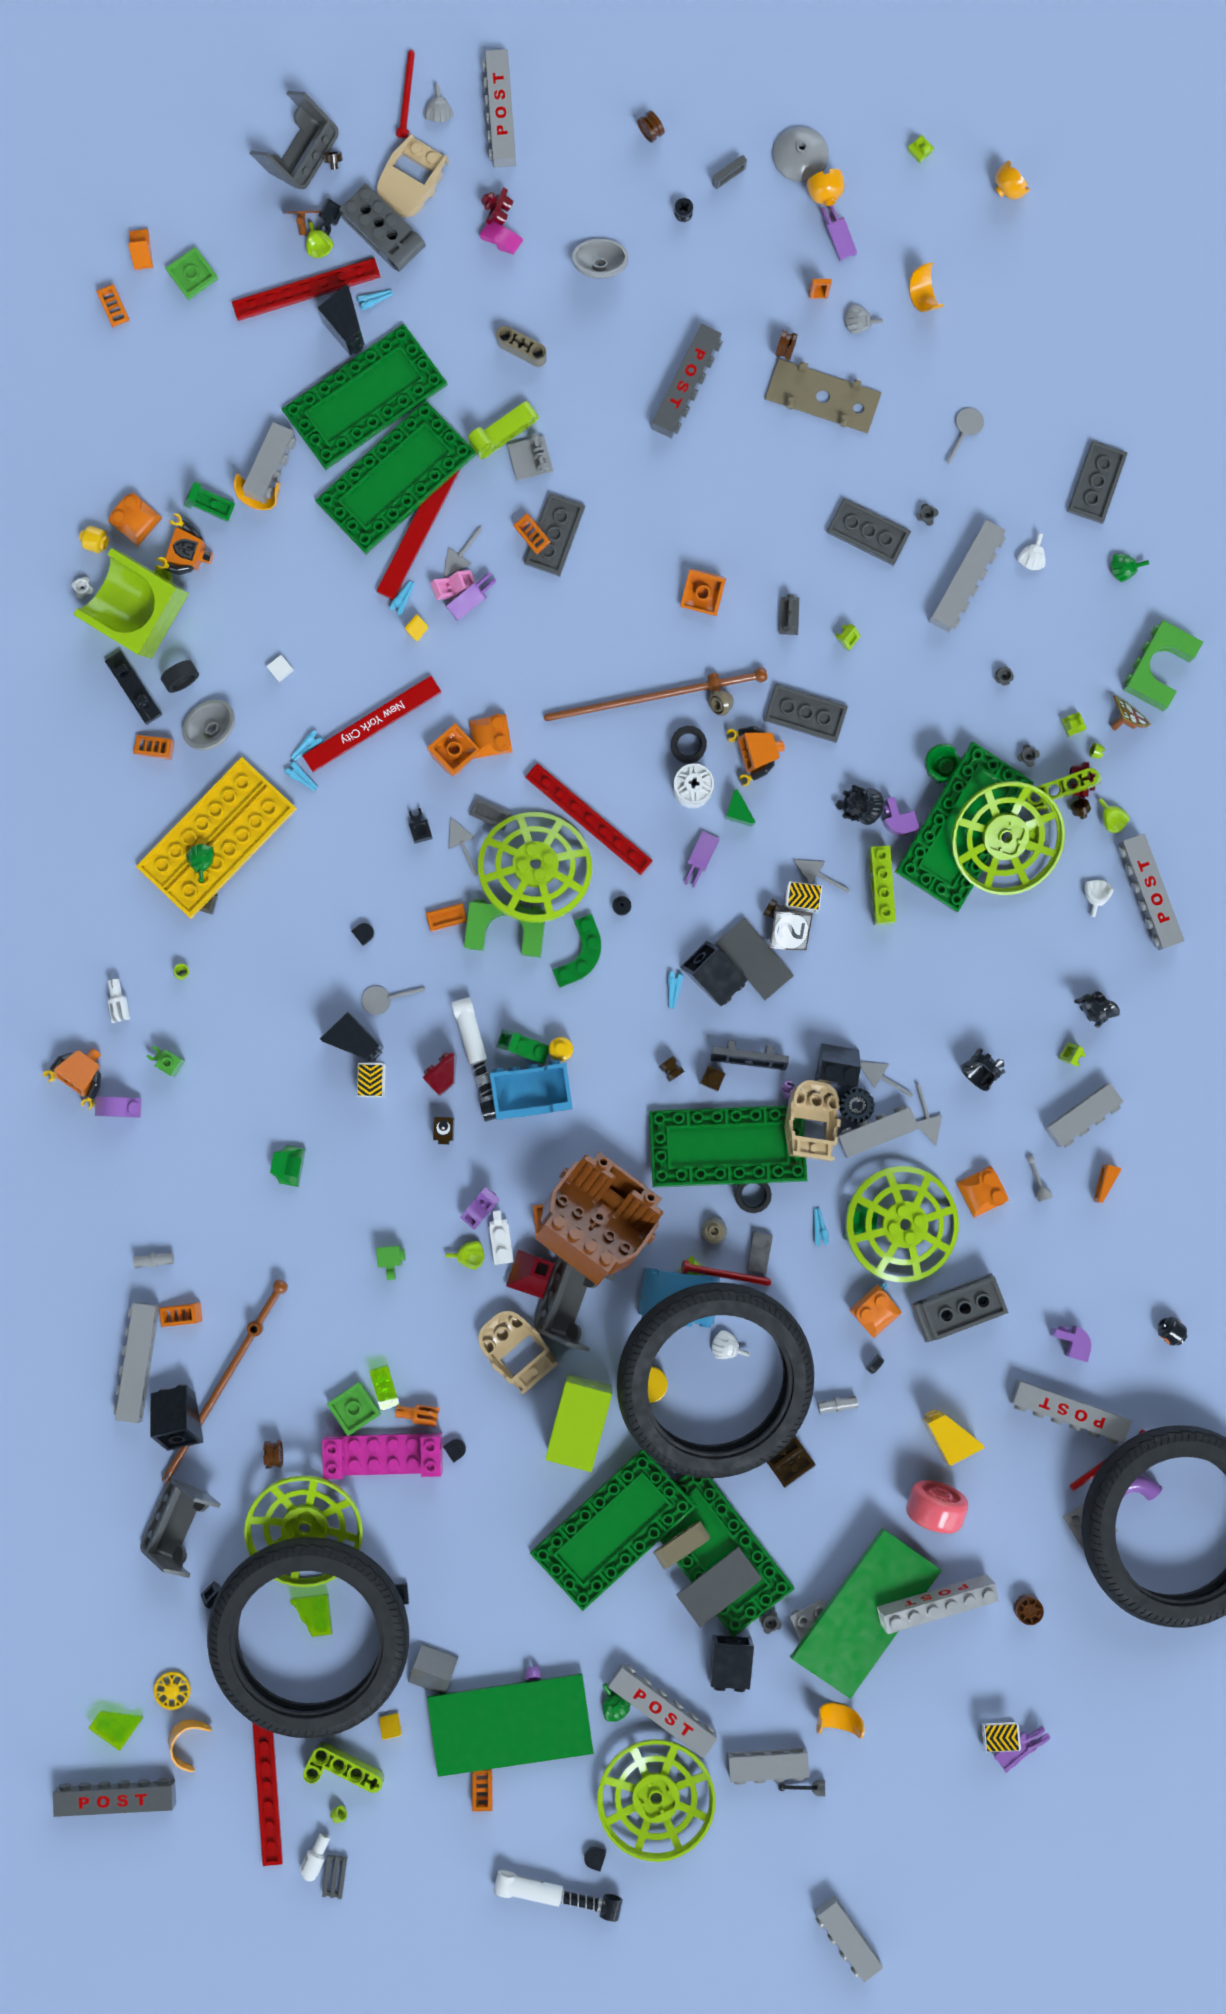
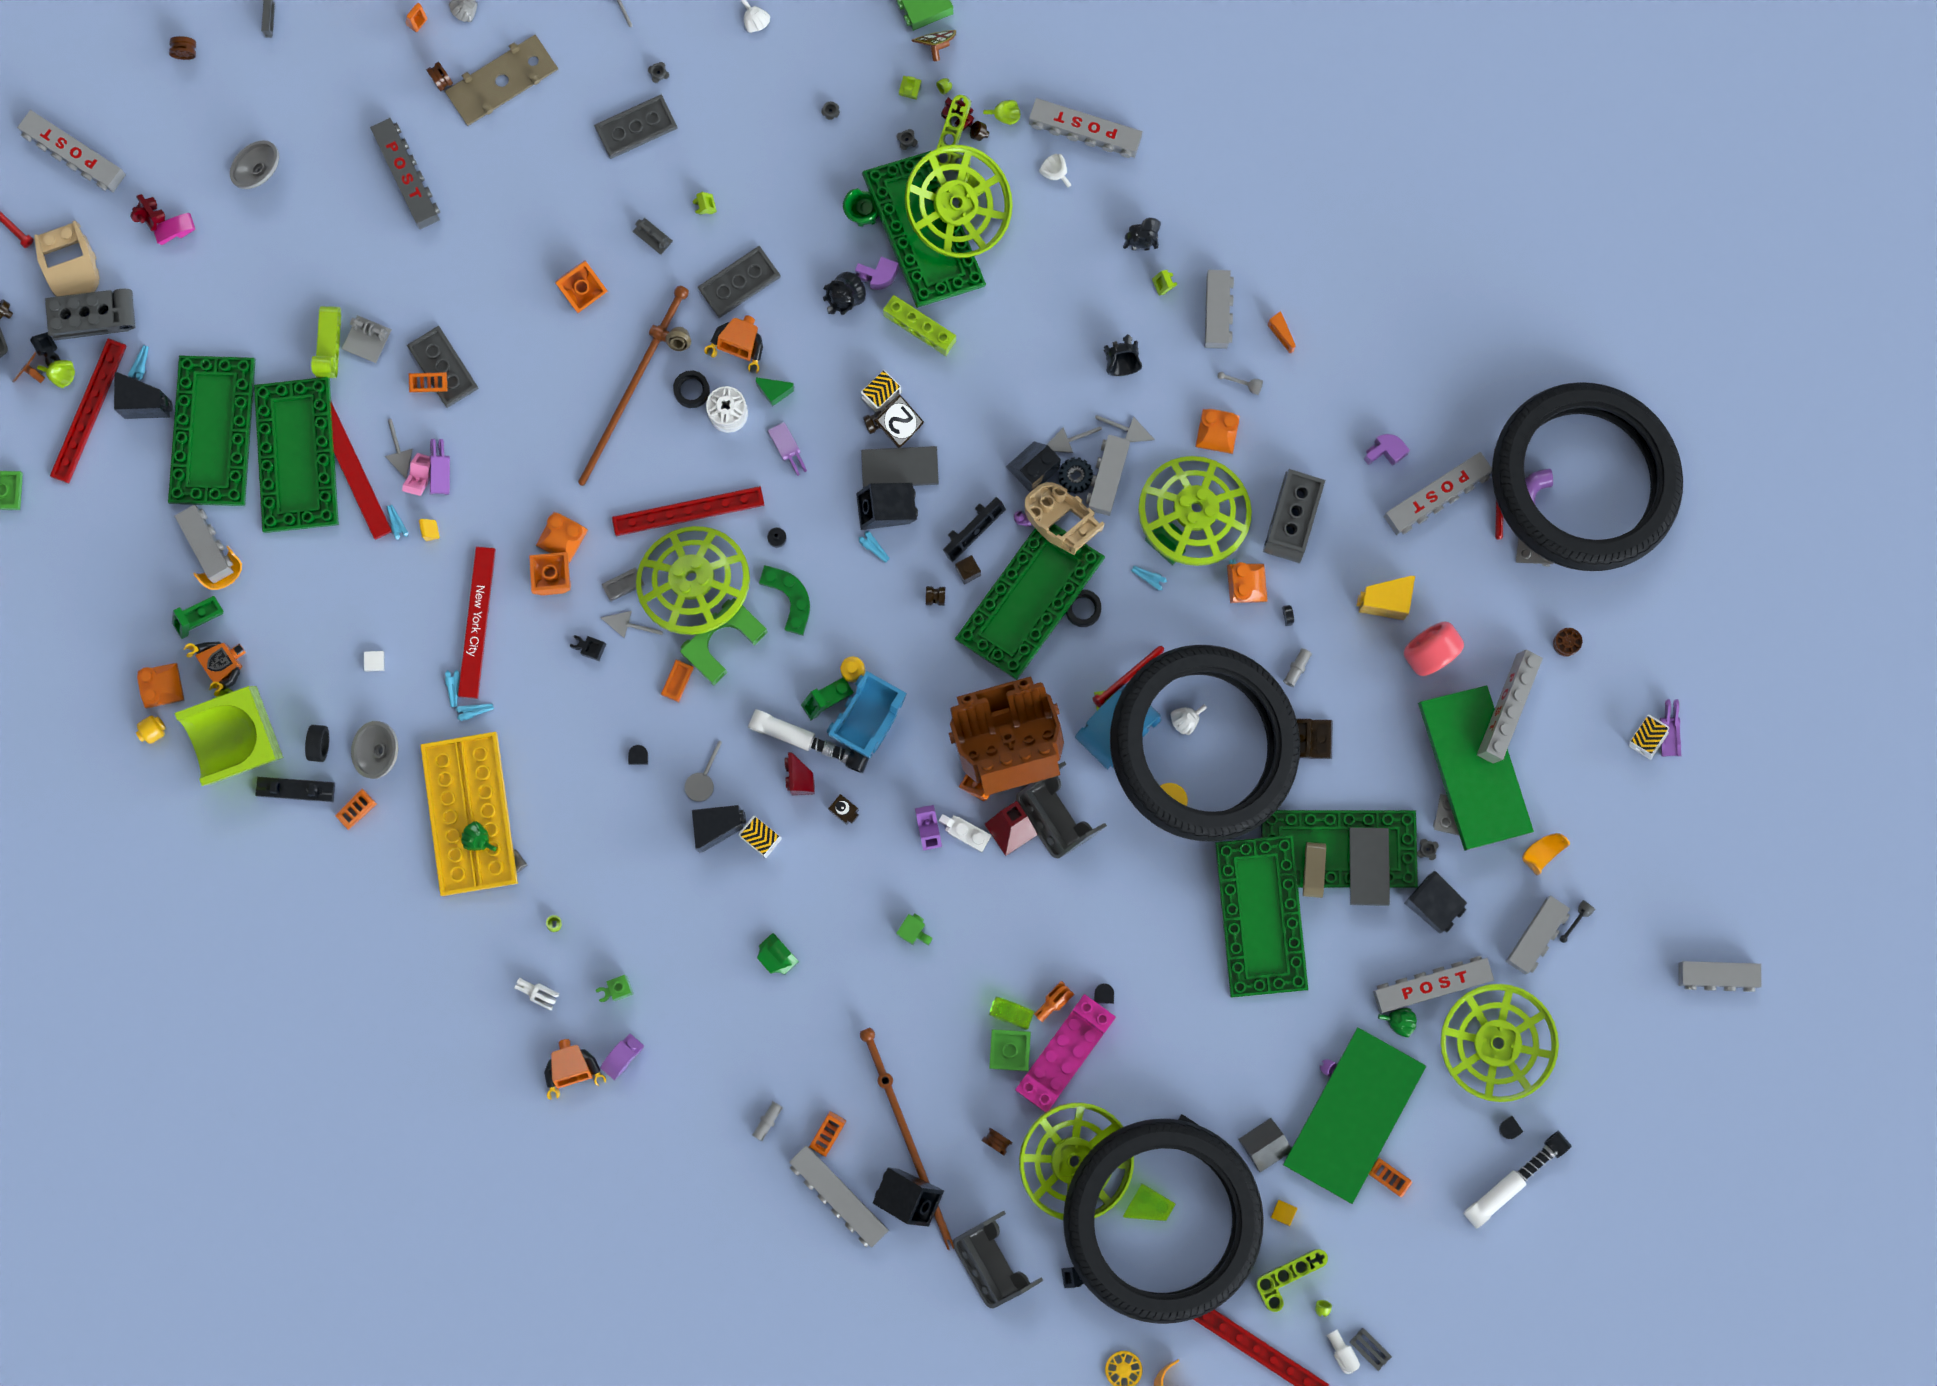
camera: 50 degrees left, 5 degrees down
(80, 593) = (178, 763): white plate -> none
(438, 108) = (31, 199): light grey piece -> none
(469, 1255) = (958, 865): lime piece -> none
(501, 1336) = (1042, 884): tan slope -> none
(512, 346) = (267, 275): dark tan beam -> none
(579, 1423) = (1156, 873): lime piece -> none
(681, 214) = (272, 76): black wheel -> none
(708, 1228) = (1082, 662): dark tan cone -> none
(759, 1252) = (1132, 637): flat silver tile -> none
(811, 869) = (865, 371): light grey piece -> none
(967, 576) = (731, 79): light grey brick -> none
(1172, 1331) = (1435, 369): black head -> none

